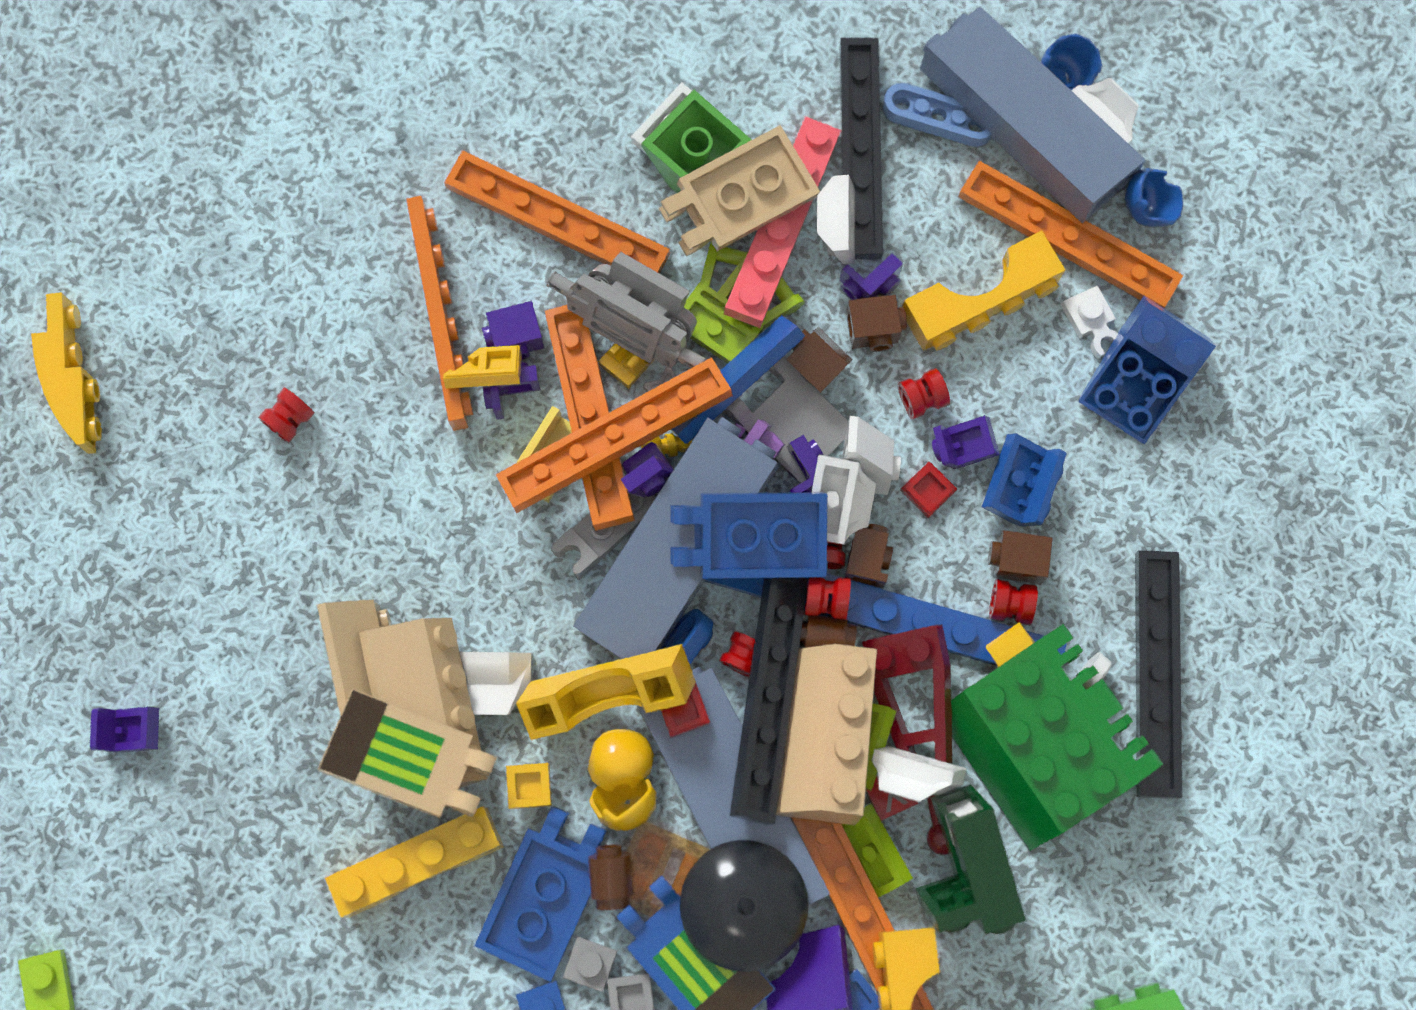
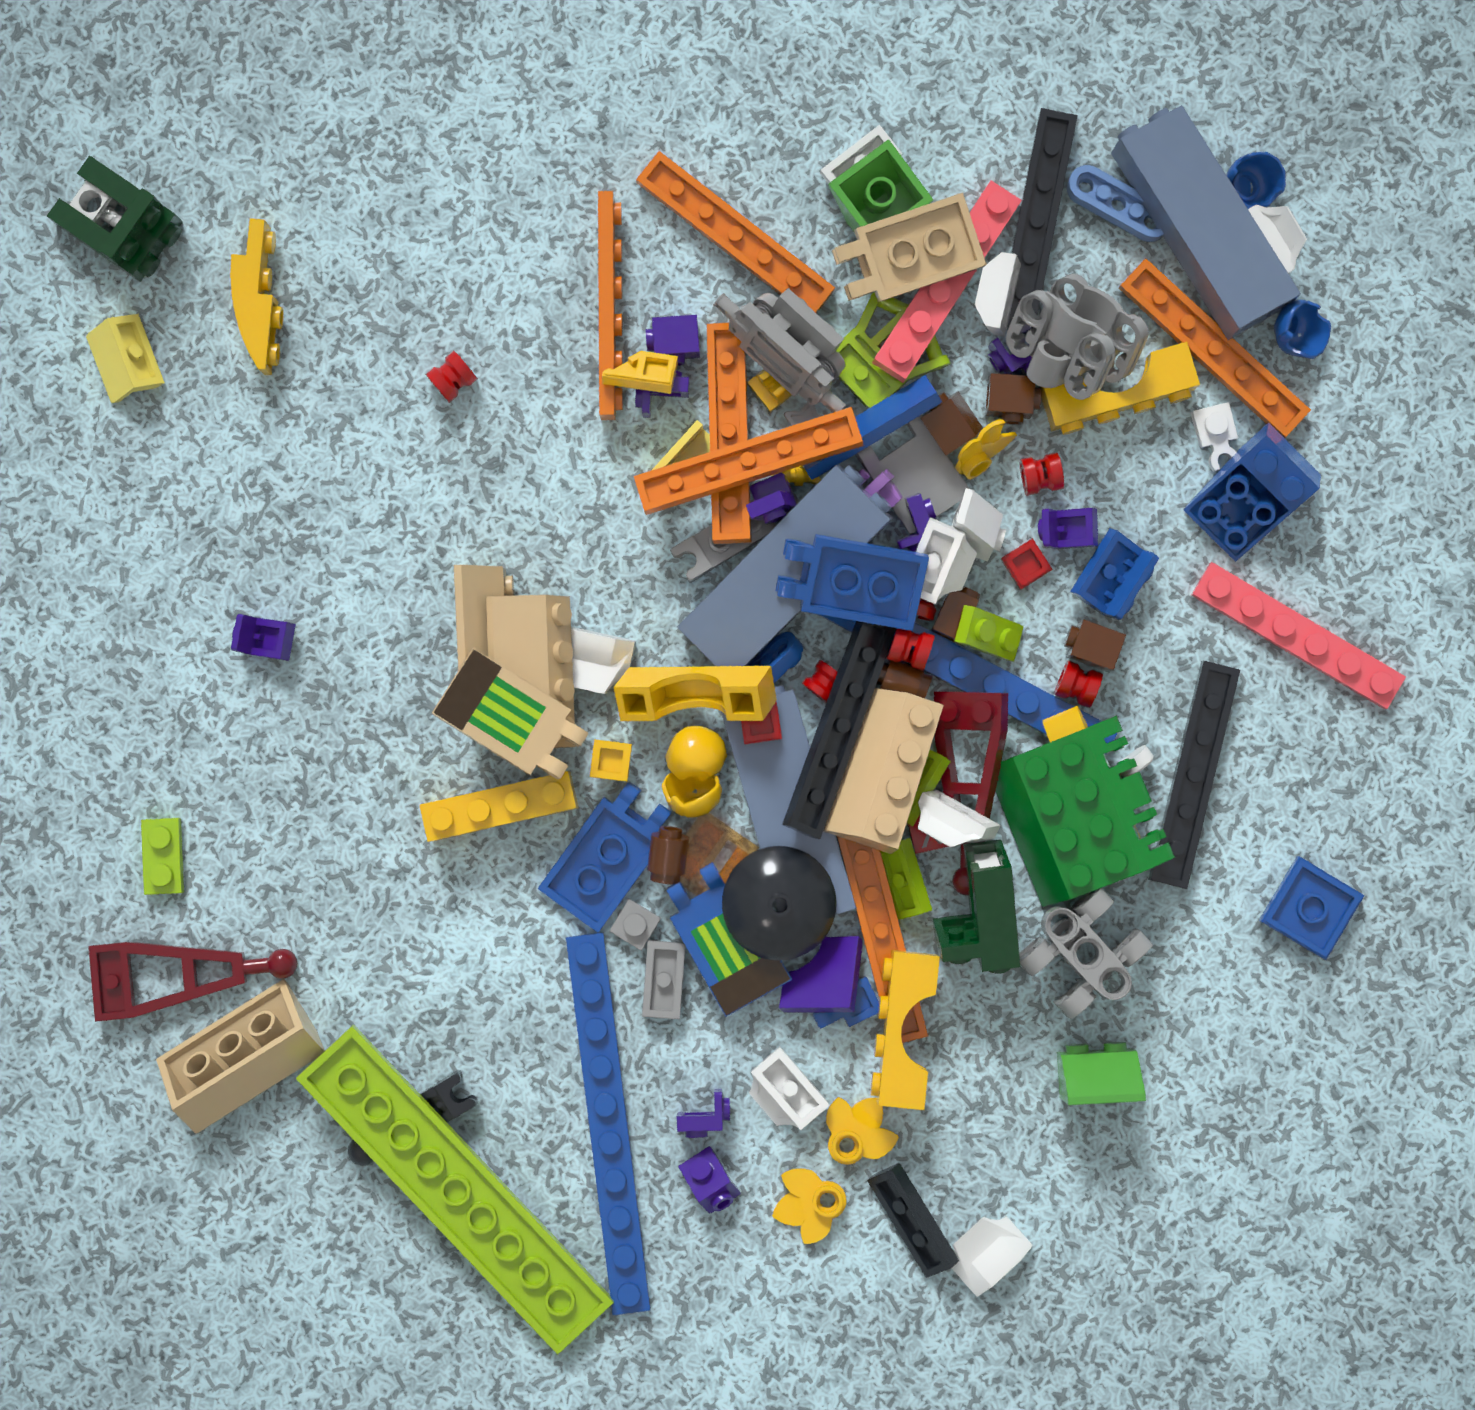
camera: 15 degrees right, 10 degrees up
(854, 380) = (976, 453): none -> yellow plate
(907, 566) = (989, 633): none -> lime plate
(928, 244) = (1075, 338): none -> light grey piece
(1076, 856) = (1092, 974): none -> light grey piece
(1229, 506) = (1298, 635): none -> coral plate
(1319, 791) = (1311, 908): none -> blue plate

